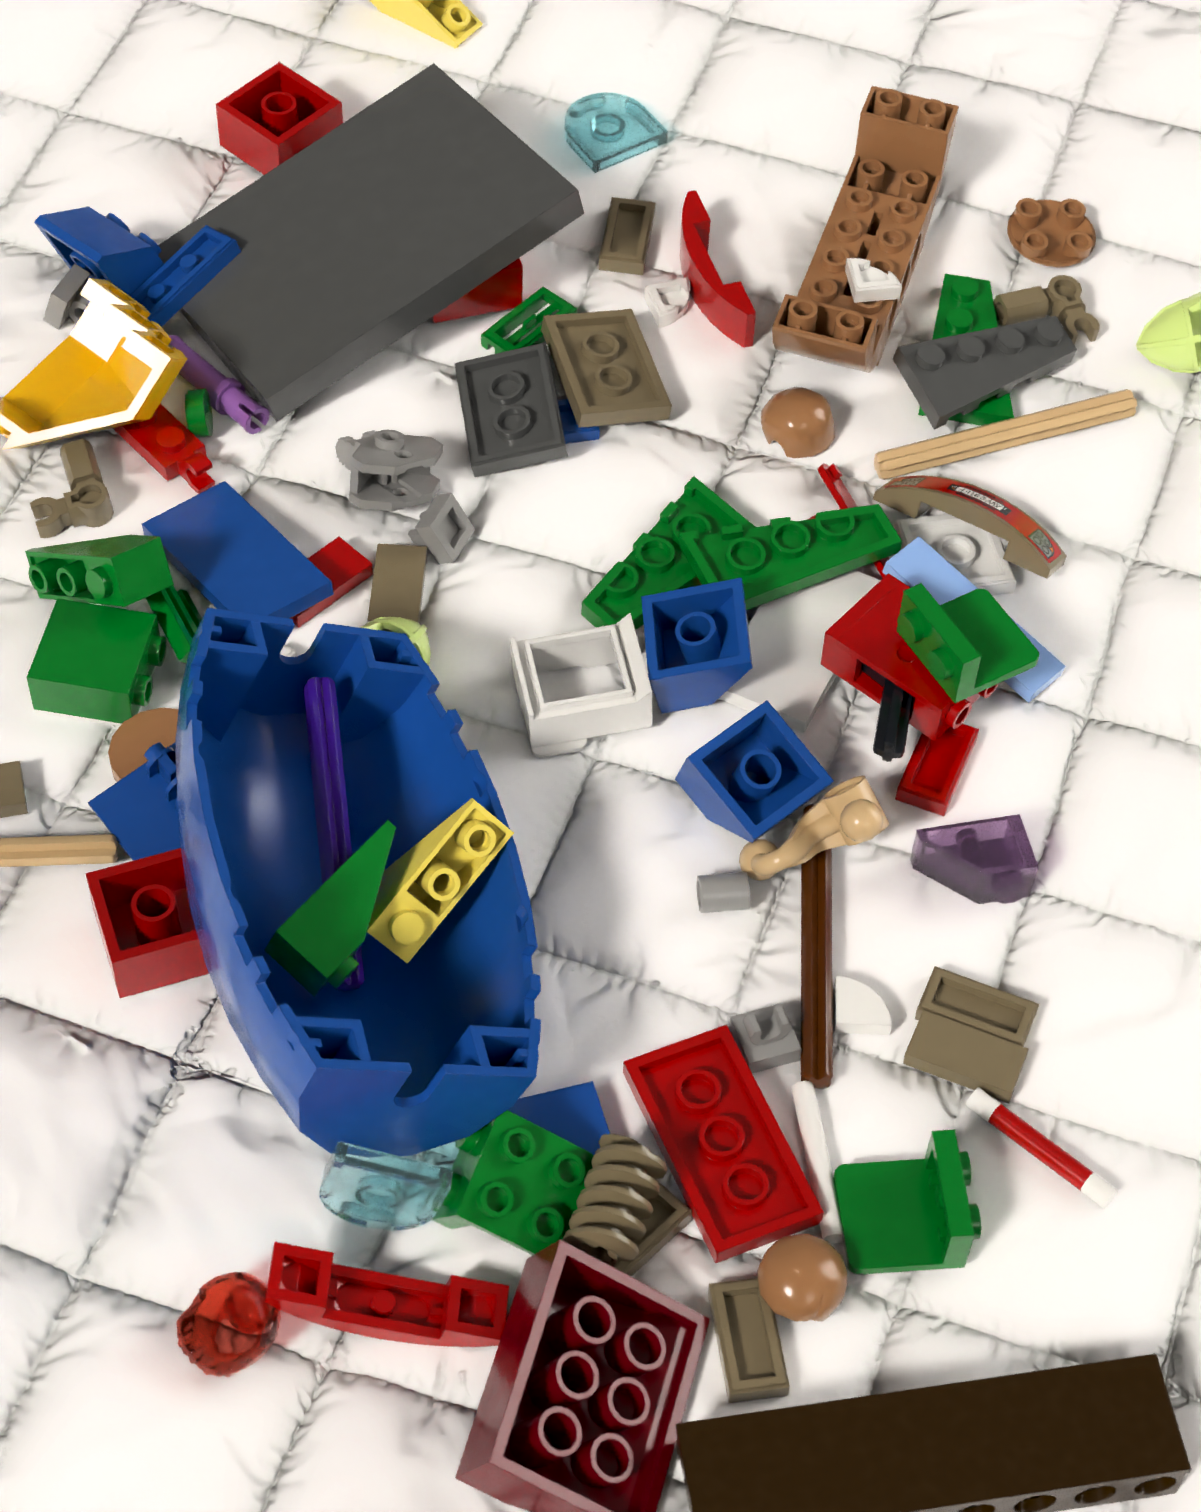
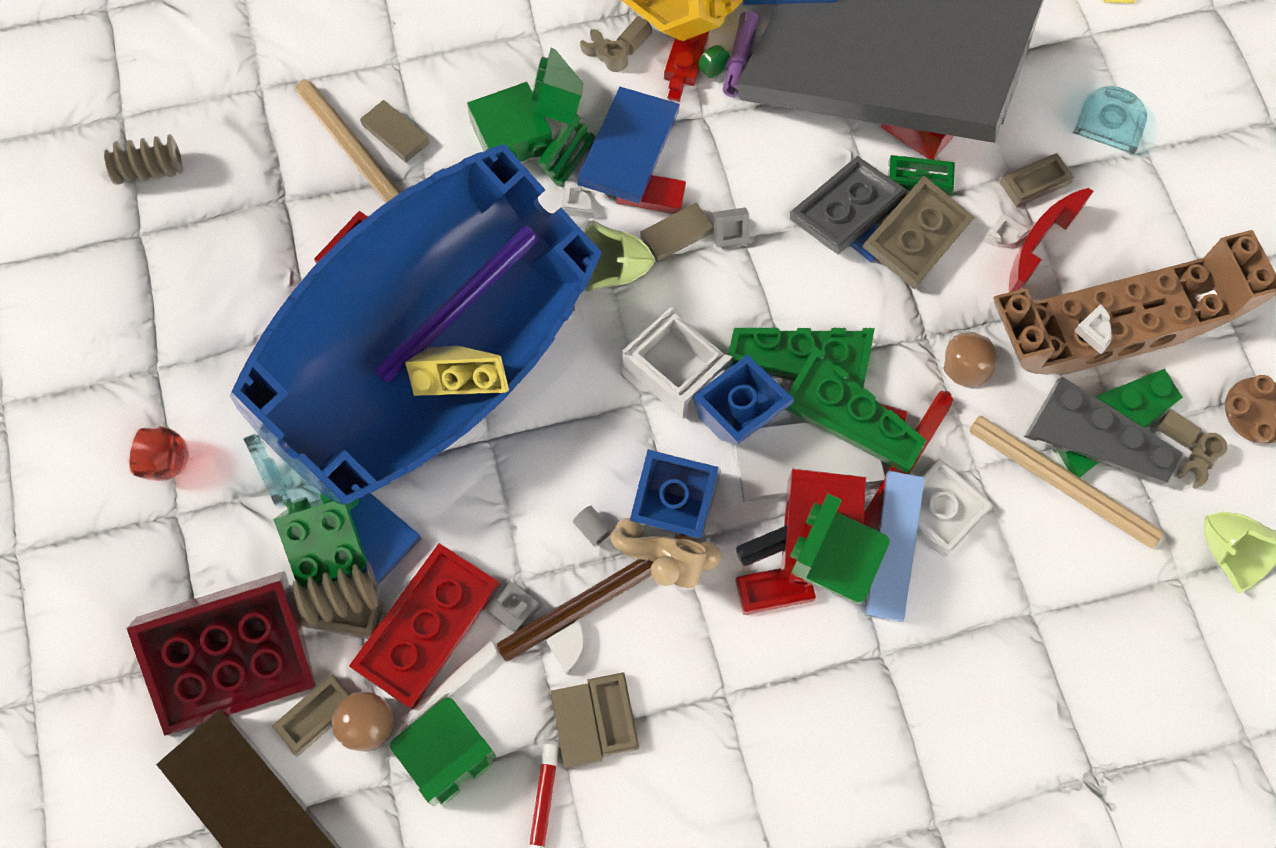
camera: 55 degrees right, 15 degrees up
(329, 927) = (389, 342): green slope -> none
(384, 1304) = (217, 515): red slope -> none
(390, 466) = (747, 173): light grey hinge -> none
(978, 858) = (717, 655): clear purple slope -> none
(1028, 543) = (981, 504): dark tan slope -> none

